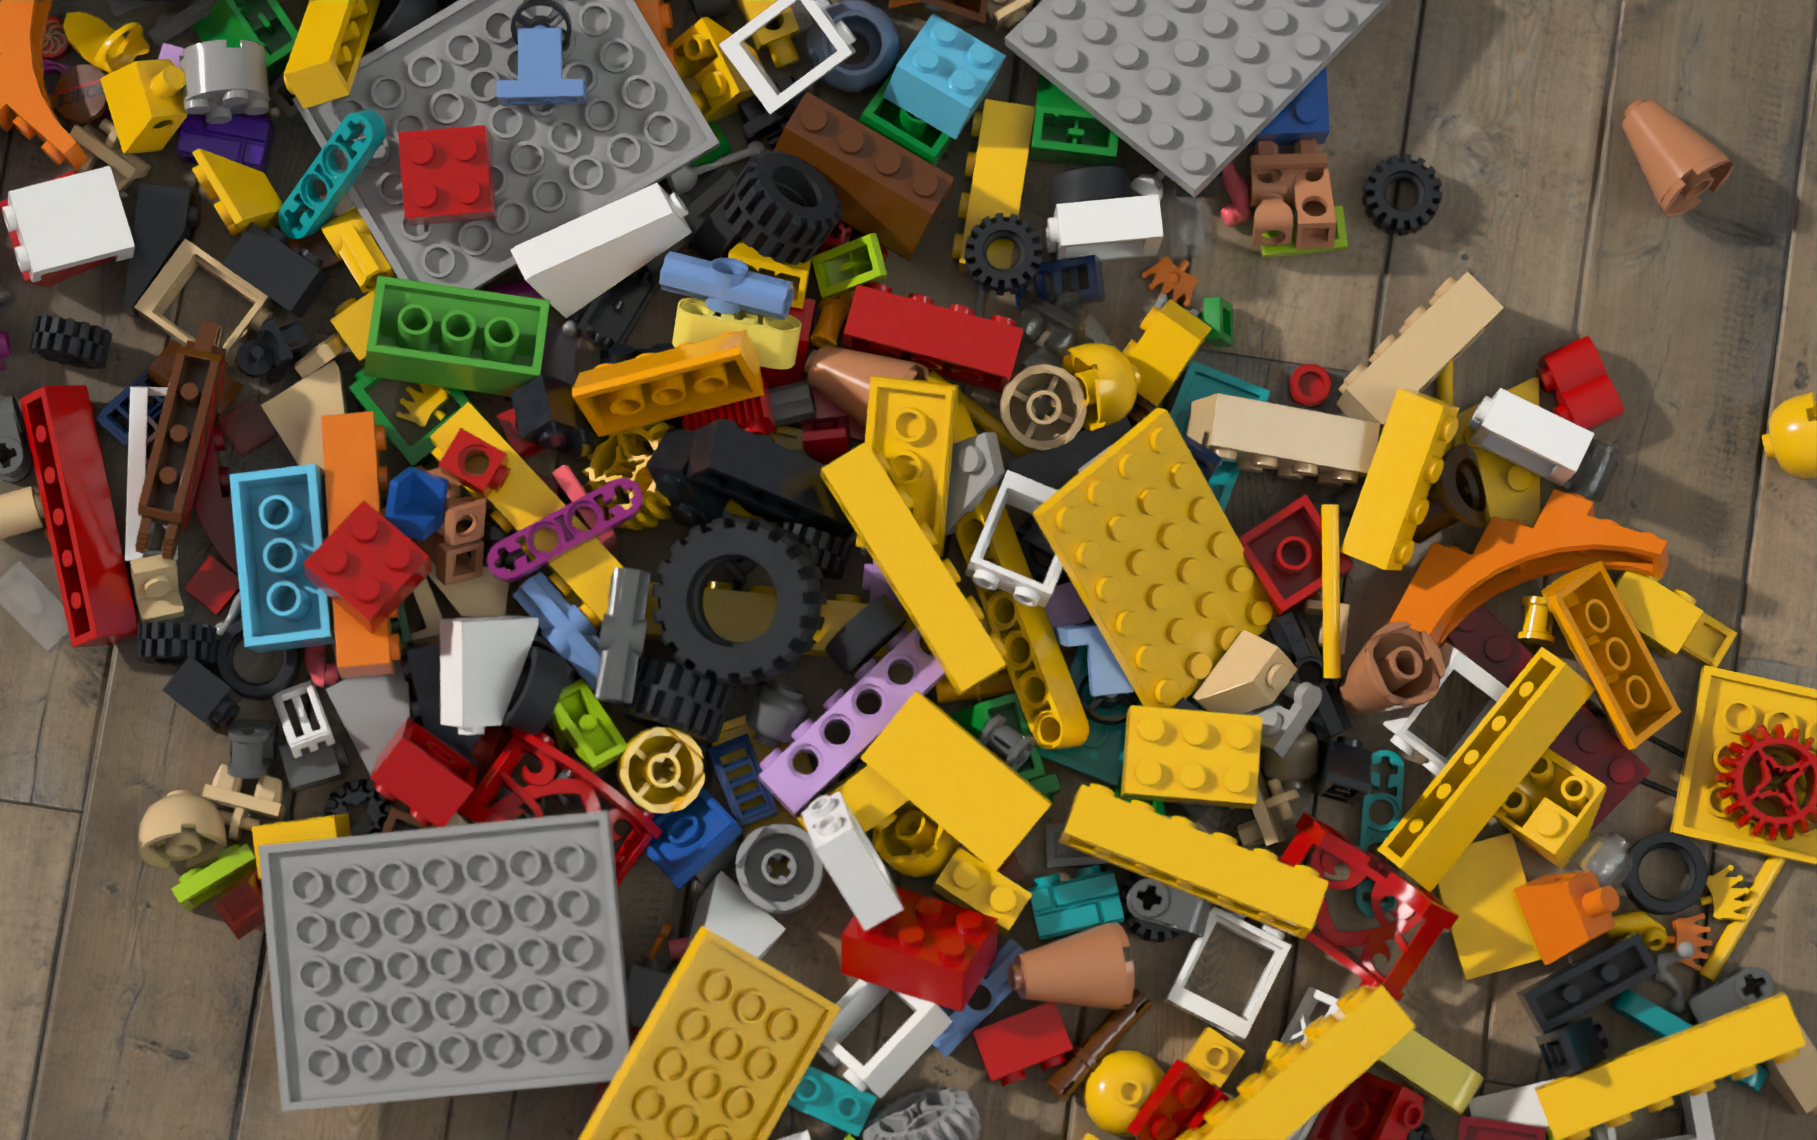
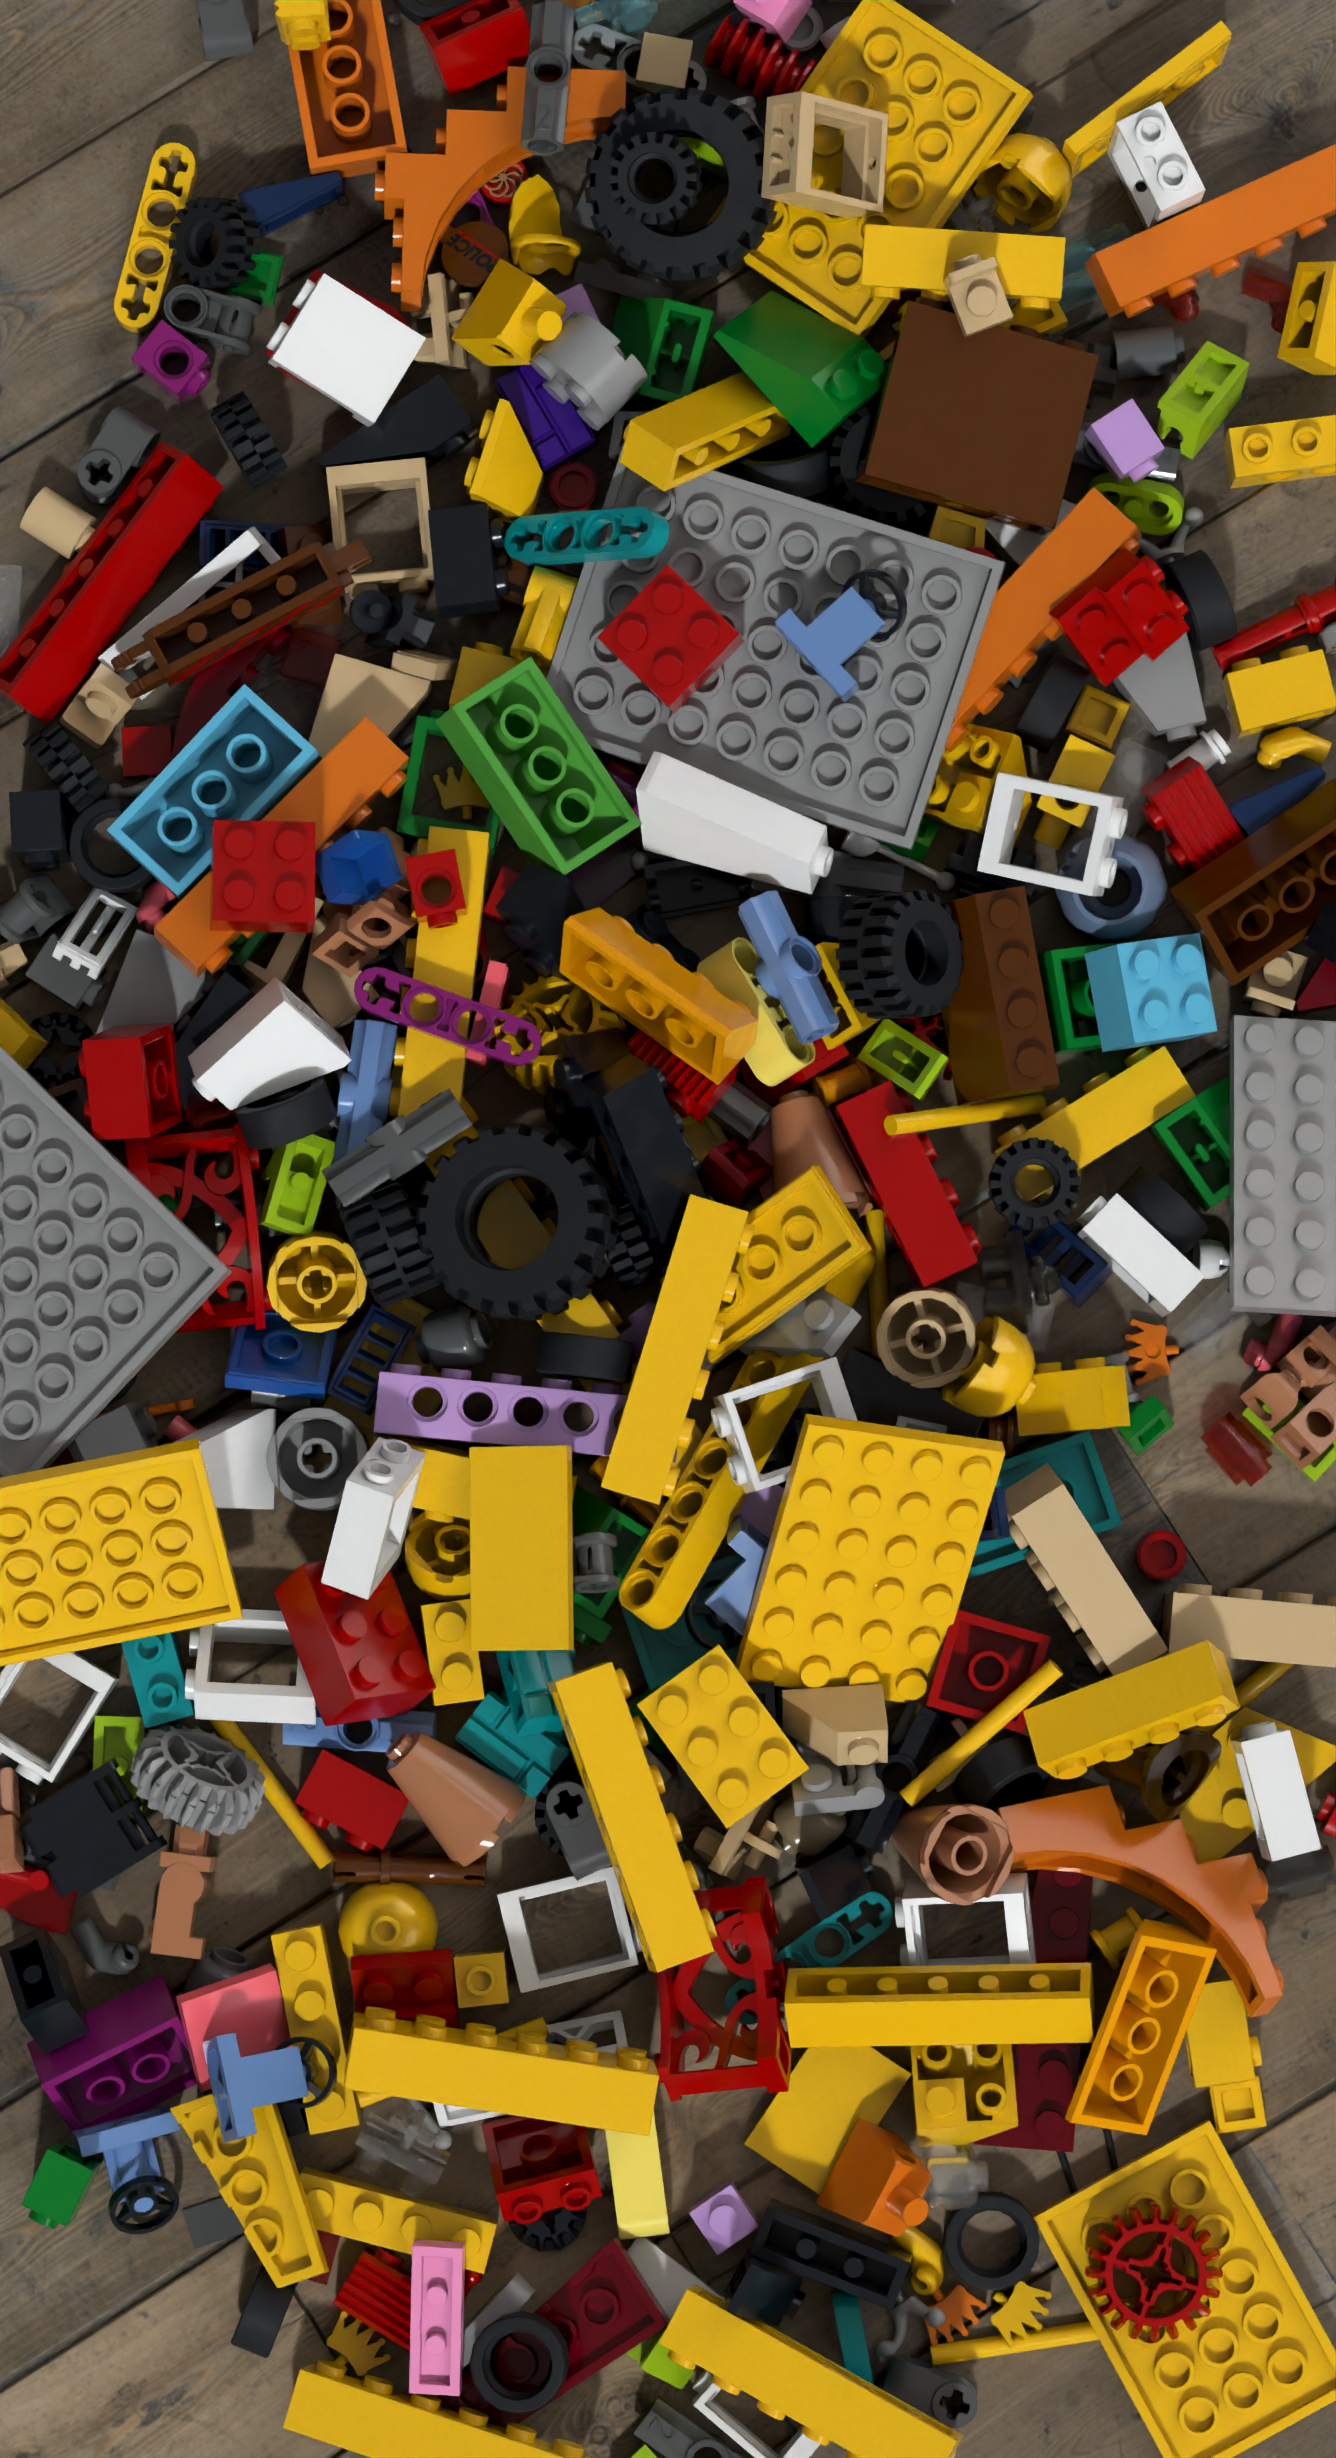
camera: 55 degrees right, 5 degrees up
(288, 164) = (573, 487): none -> red tile
(919, 260) = (964, 1114): none -> yellow bar
(977, 1091) = (278, 1796): none -> yellow bar
(1049, 860) = (527, 1688): none -> teal brick
(1285, 278) = (1237, 1450): none -> clear red brick
(1368, 602) = (1001, 1775): none -> black tyre
(1503, 1033) = (723, 2217): none -> lavender brick

